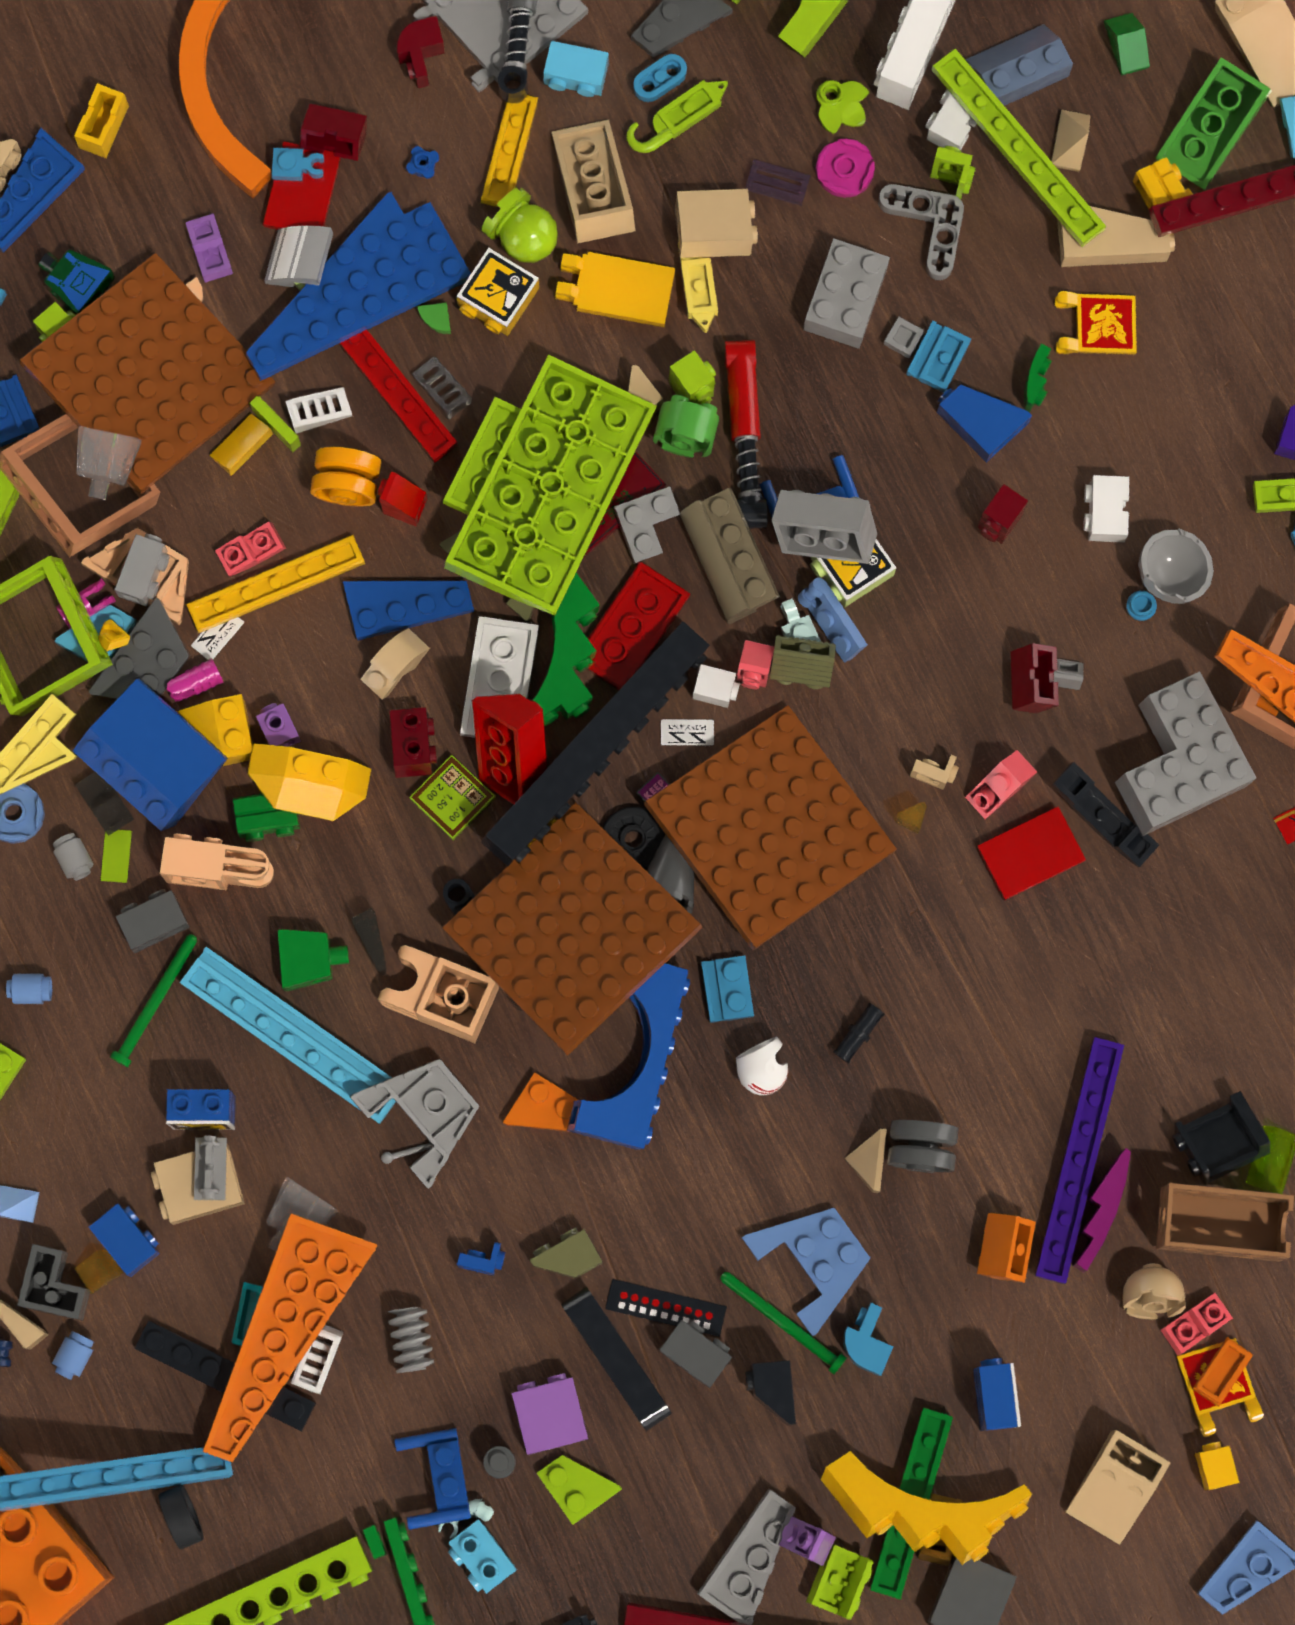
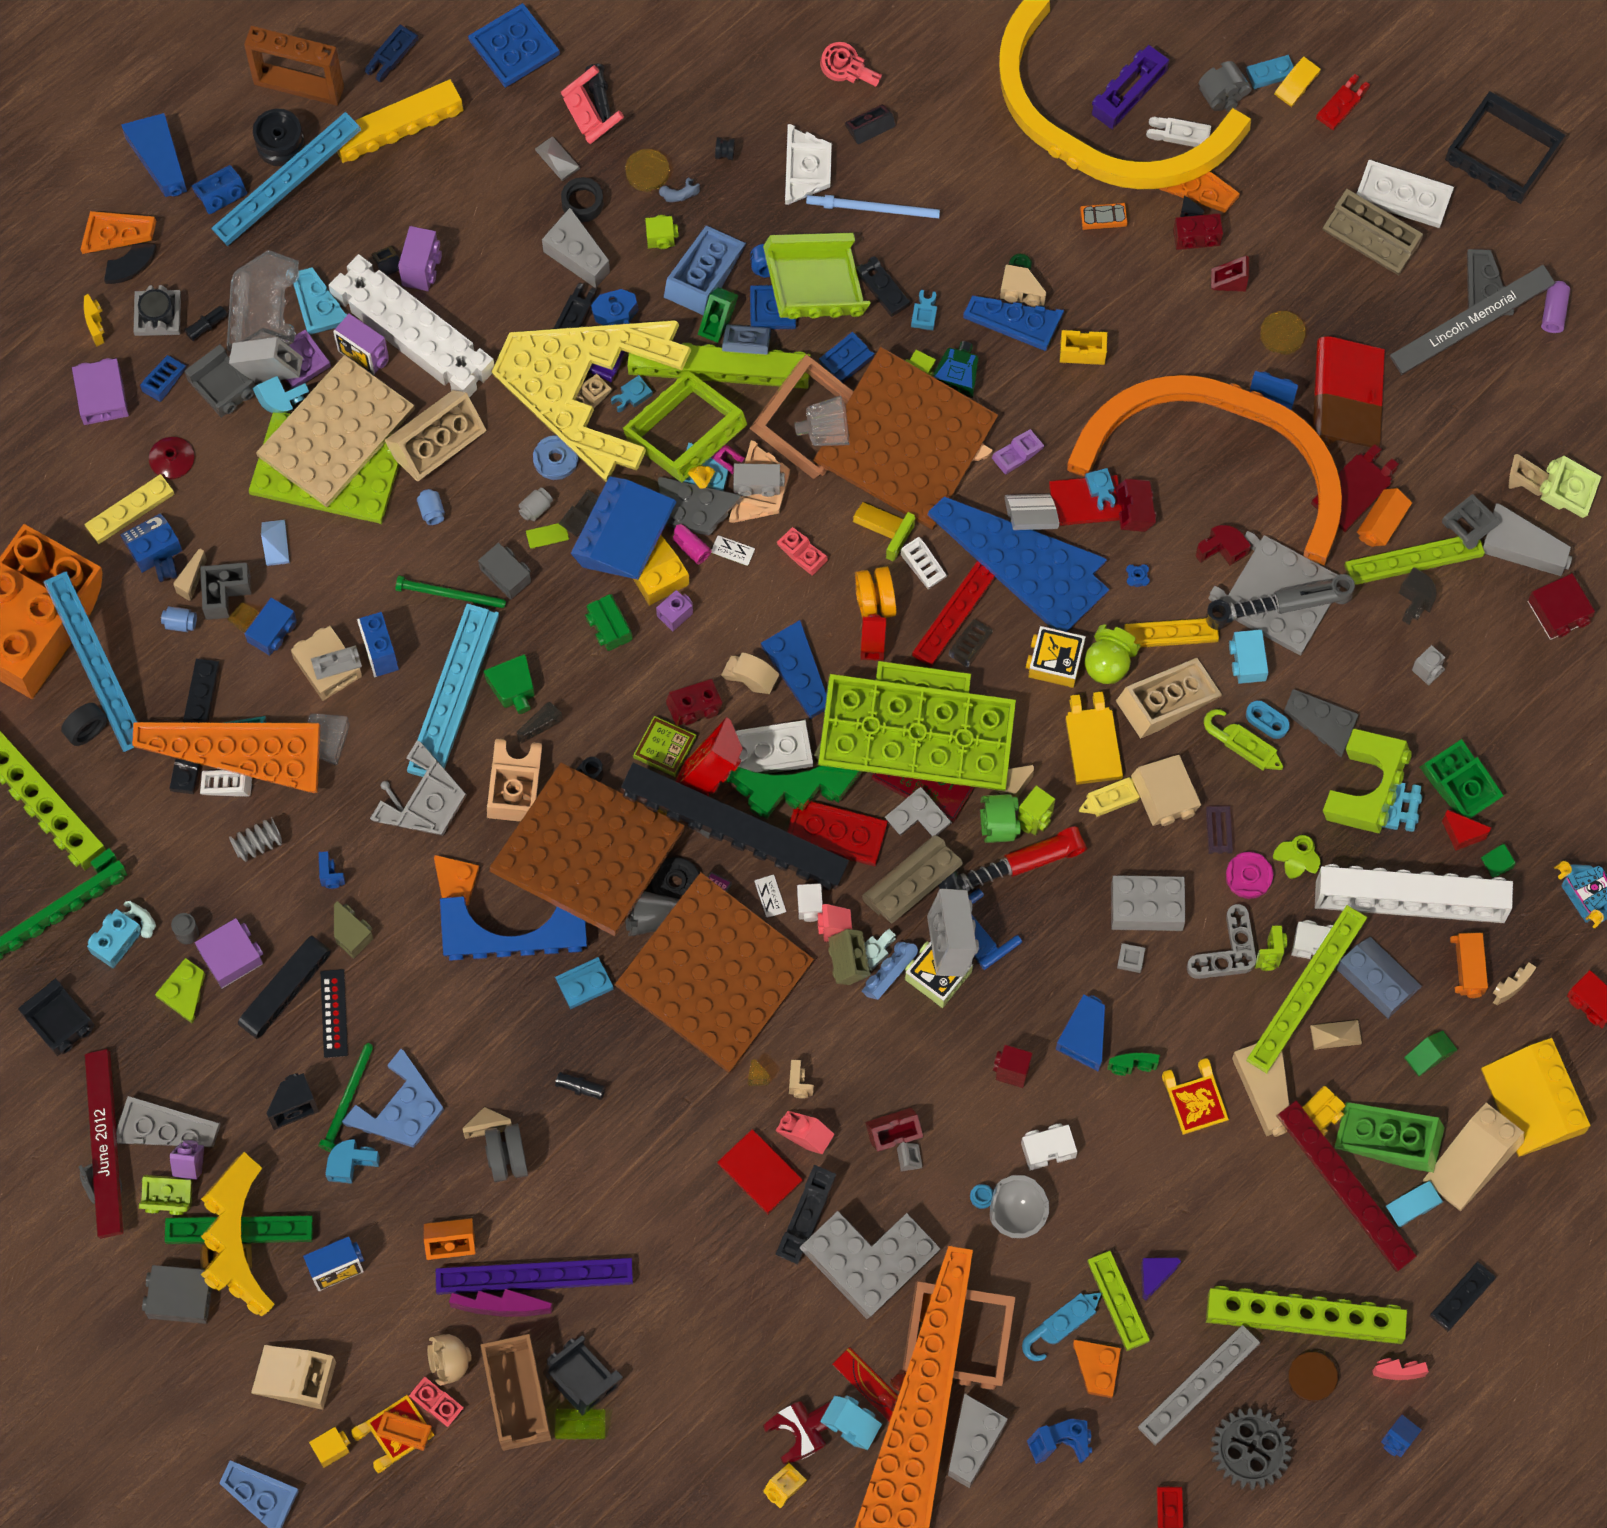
camera: 75 degrees right, 10 degrees down
(213, 864) = (558, 595): light nougat brick -> none
(275, 584) = (782, 576): yellow tile -> none
(308, 781) = (639, 641): yellow wedge -> none
(435, 317) = (1023, 622): bright green tile -> none
(446, 1476) = (165, 894): blue plate -> none
(696, 1353) = (304, 1039): dark grey brick -> none
(759, 1069) = (526, 1018): white helmet -> none
(939, 356) = (1124, 986): dark azure plate -> none

